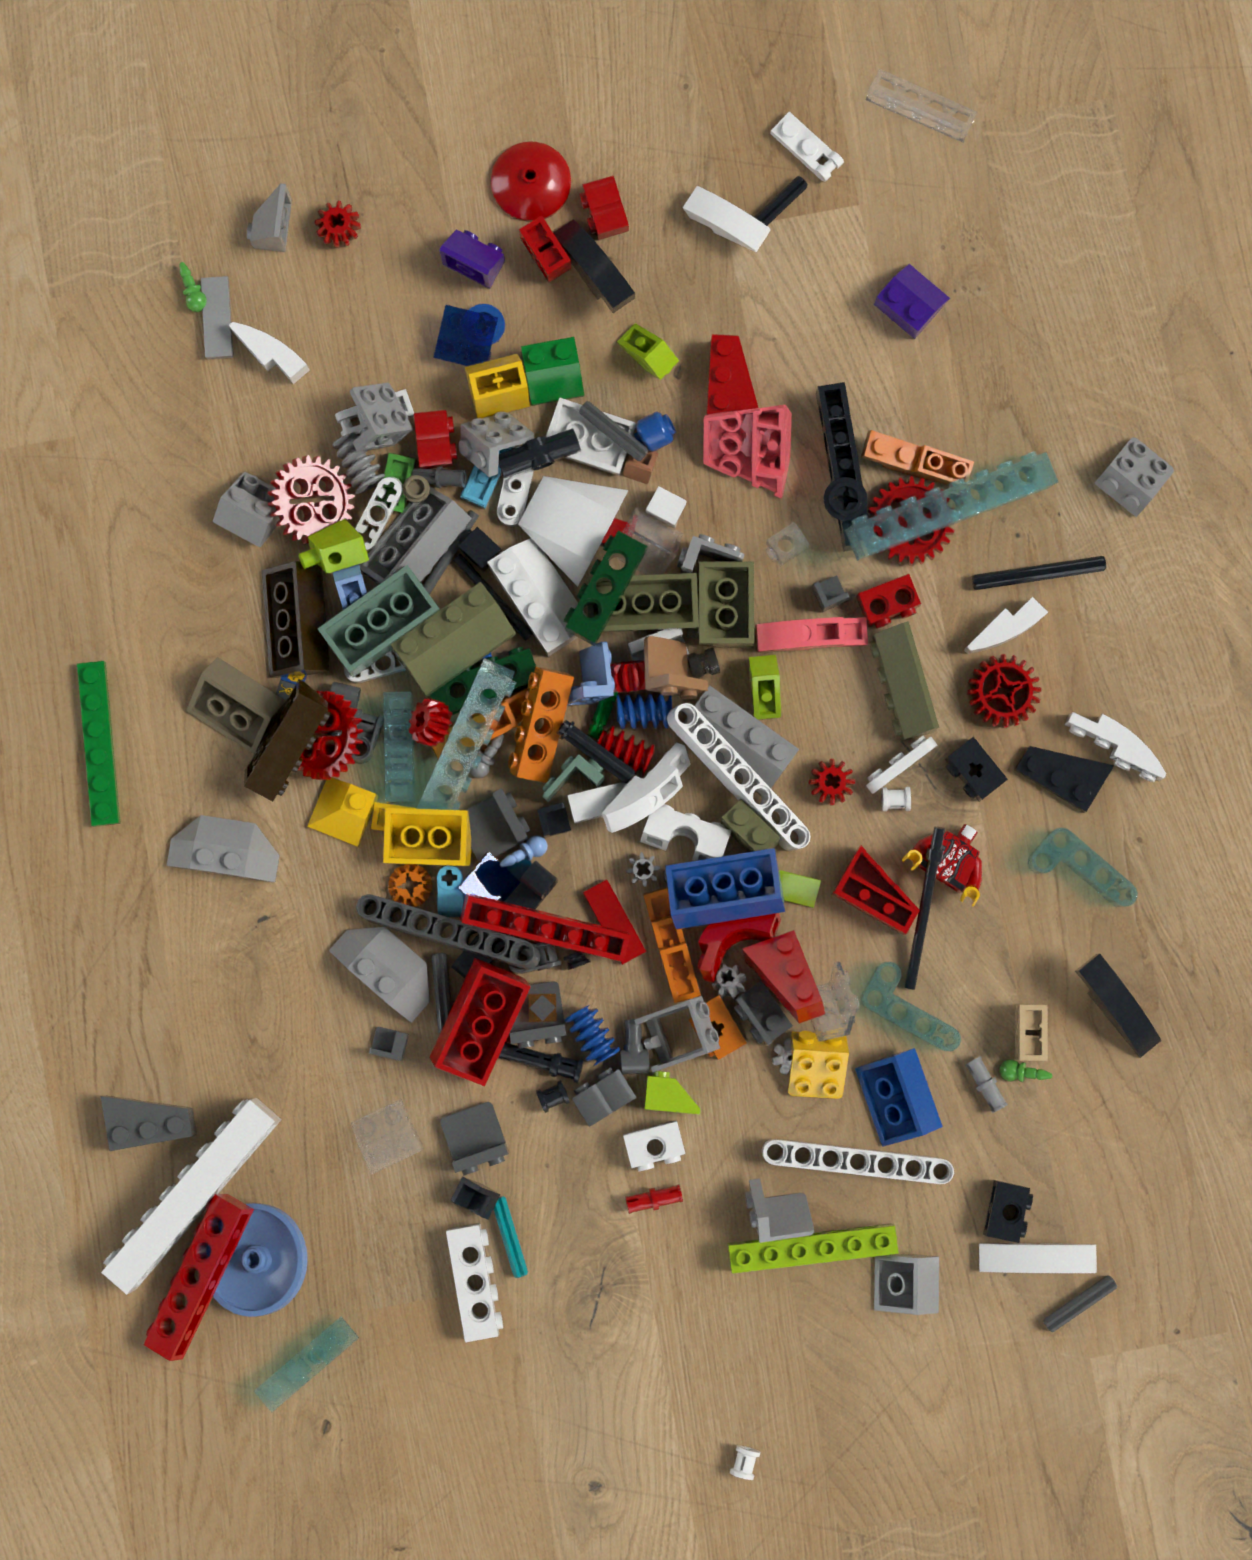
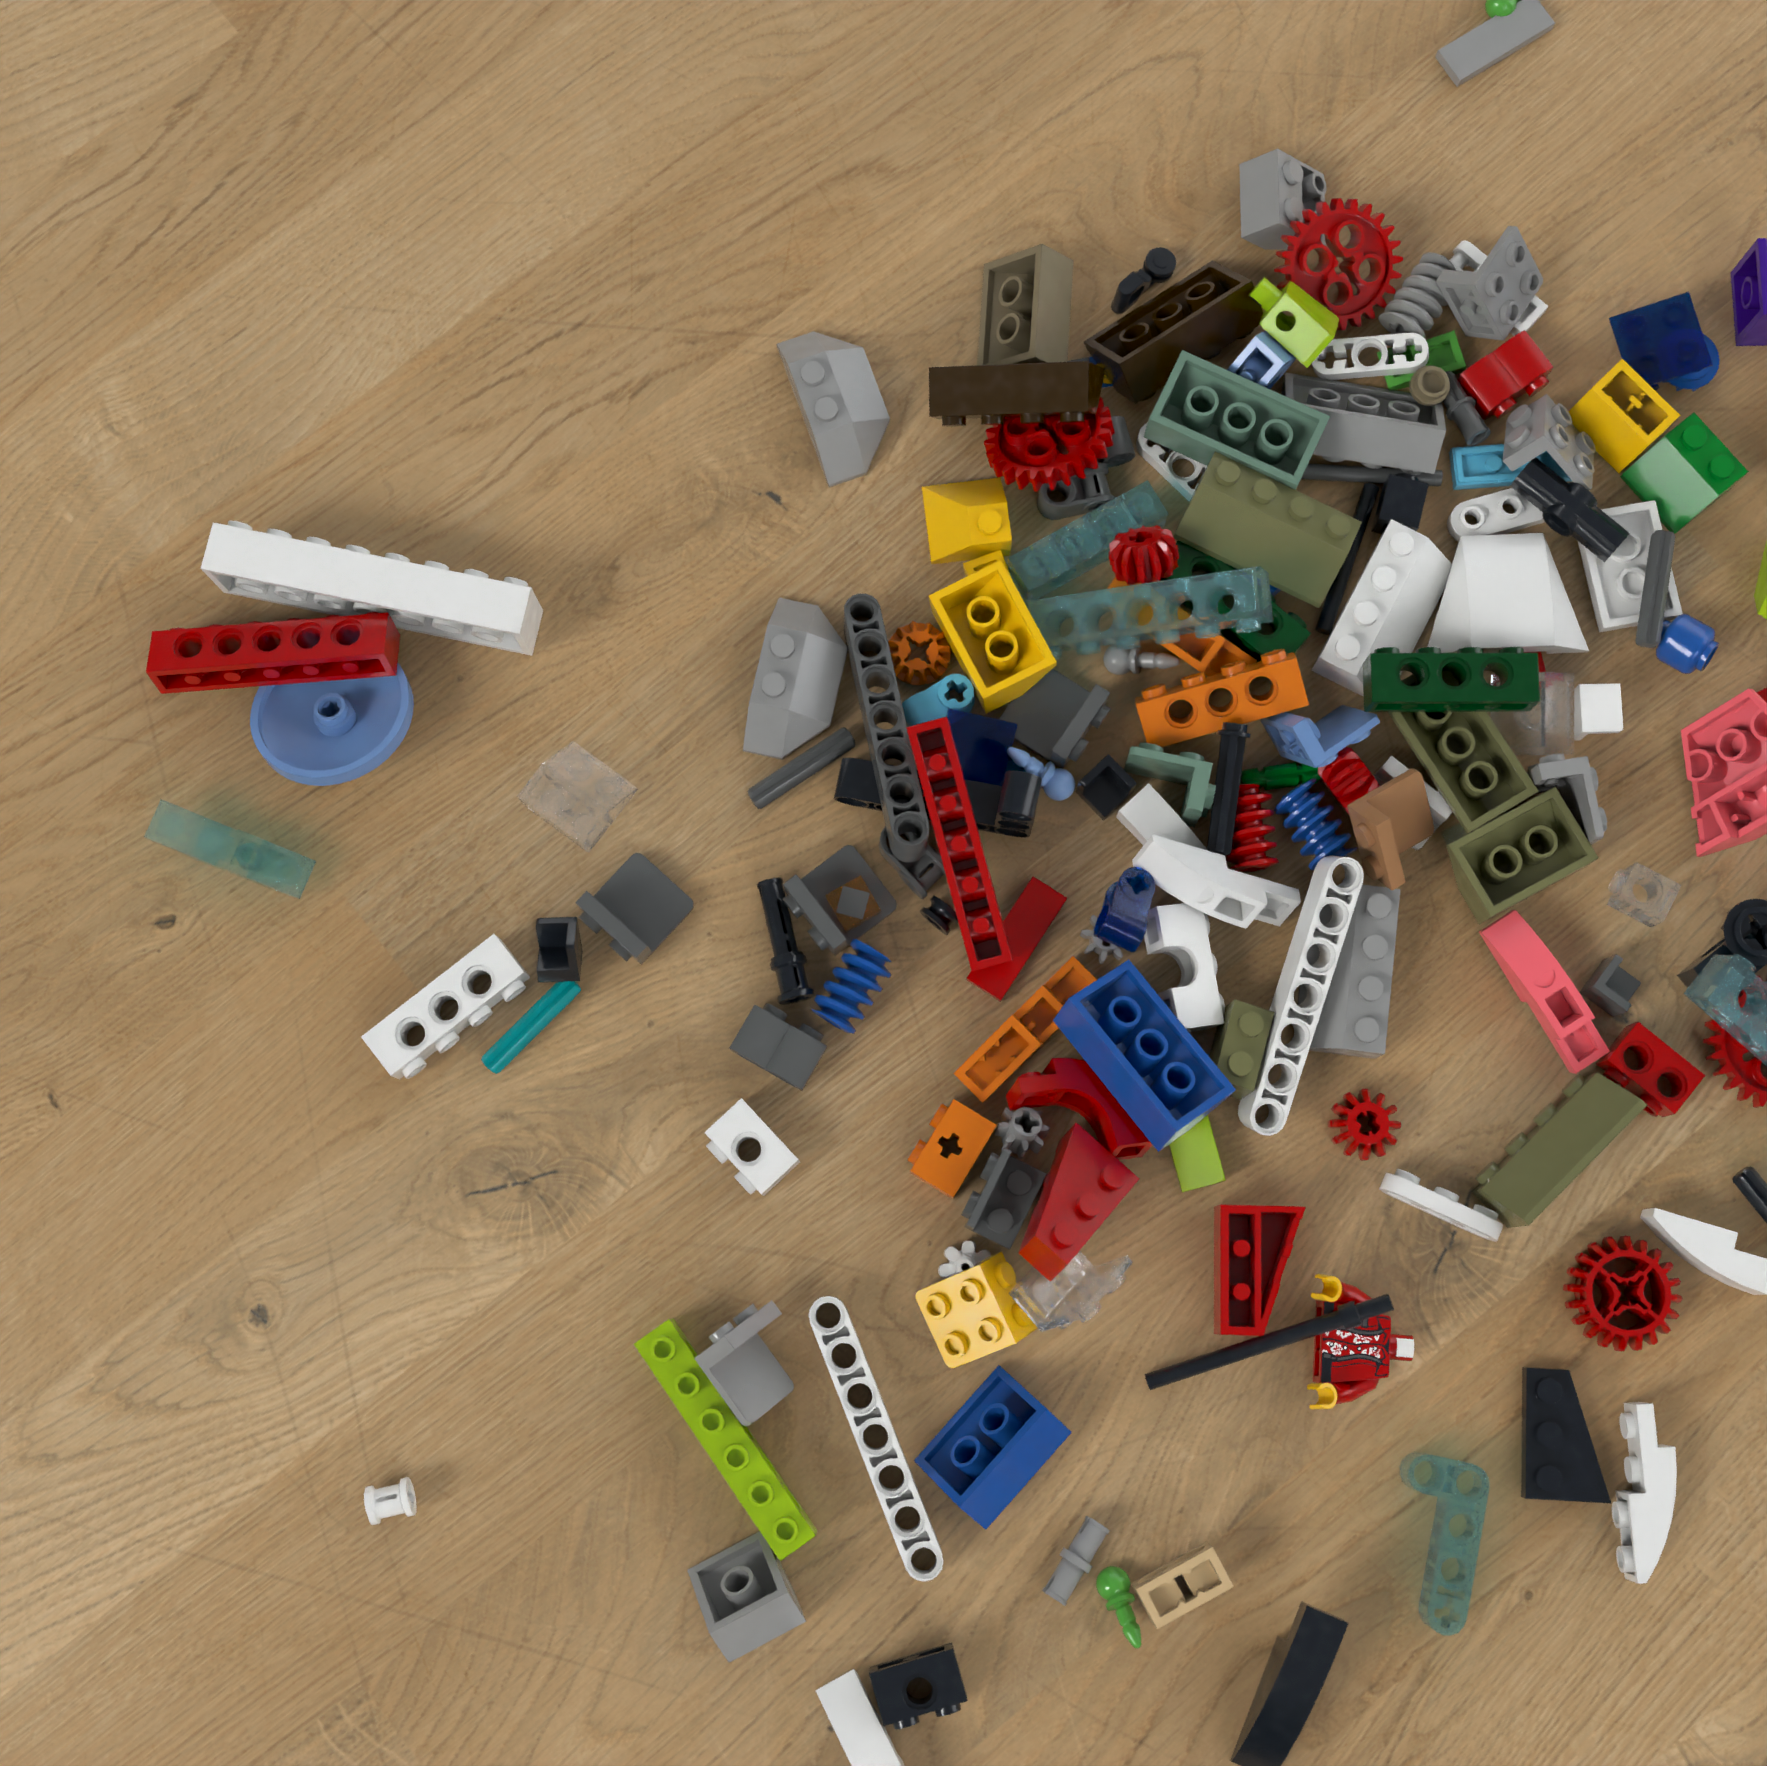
camera: 65 degrees right, 5 degrees down
(98, 743) = (882, 183): green plate -> none
(143, 1123) = (436, 485): dark grey wedge -> none
(248, 607) = (1156, 269): none -> black piece
(270, 351) = (1493, 122): white slope -> none
(271, 221) = (1660, 34): light grey slope -> none
(337, 215) = (1703, 115): red gear -> none
(389, 1043) = (700, 736): dark grey panel -> none
(479, 1022) = (789, 829): red brick -> none
(552, 1096) = (744, 980): black bush -> none
(634, 1054) = (856, 1058): dark grey pin -> none
(636, 851) = (1126, 909): none -> clear blue piece
(640, 470) = (1625, 655): nougat slope -> none
(654, 1199) = (679, 1186): red pin -> none
(668, 1095) = (827, 1130): lime slope -> none
(700, 1015) = (944, 1124): light grey window -> none
(709, 661) = (1428, 876): clear smoke wheel -> none
(765, 686) = (1438, 967): lime slope -> none
(896, 799) = (1391, 1224): white bush -> none
(912, 1014) = (1117, 1403): clear light blue beam -> none
(989, 774) = (1510, 1297): black brick -> none

